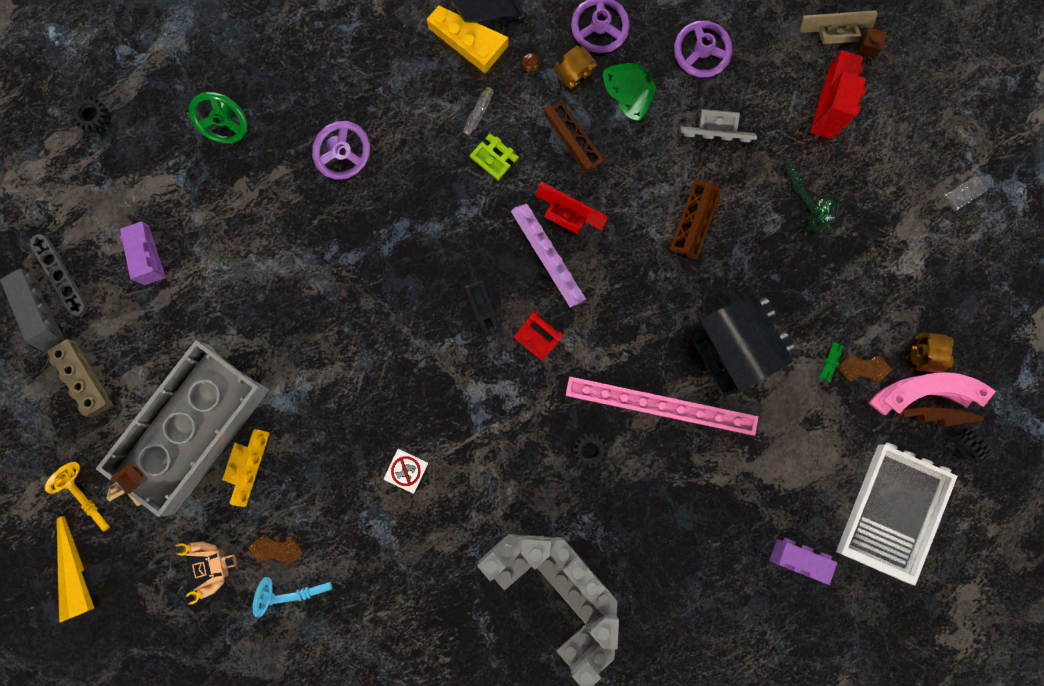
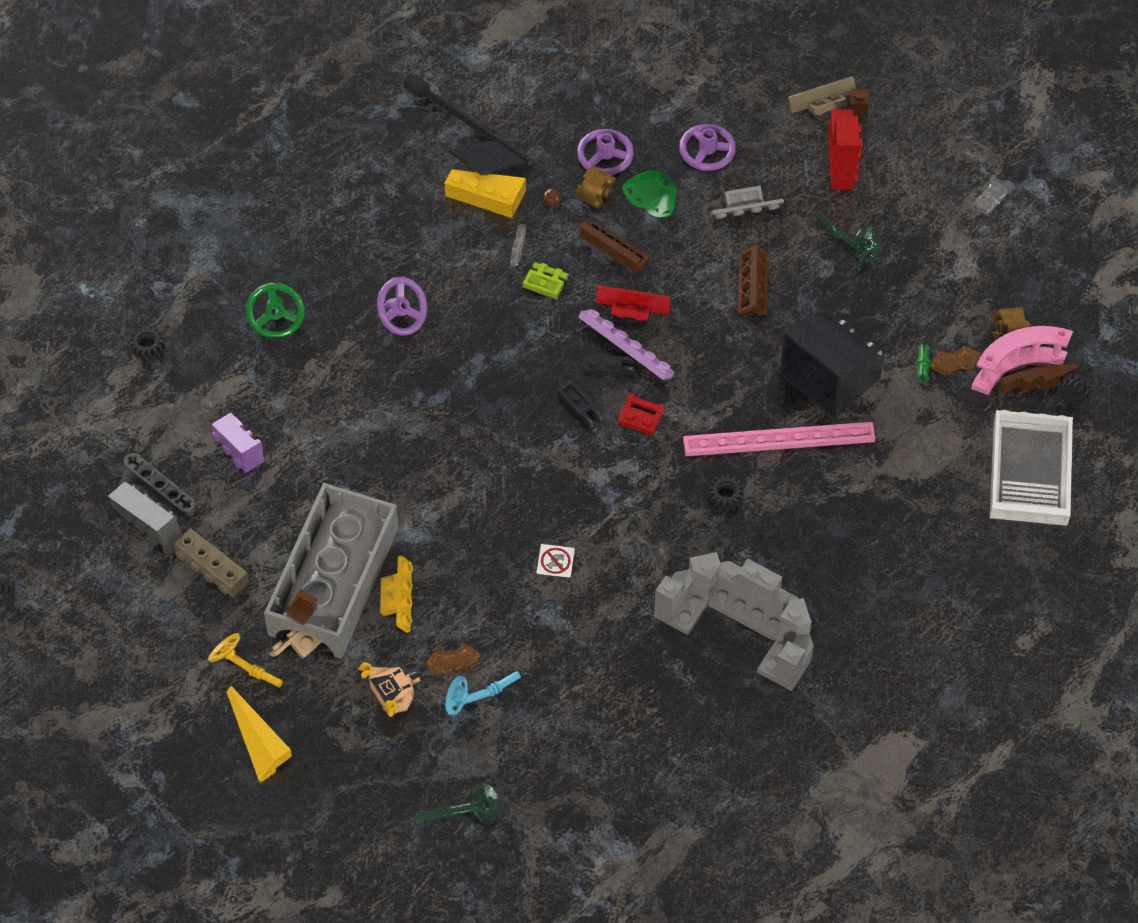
camera: 15 degrees left, 25 degrees down
(803, 560) = (959, 526): medium lavender wedge -> none

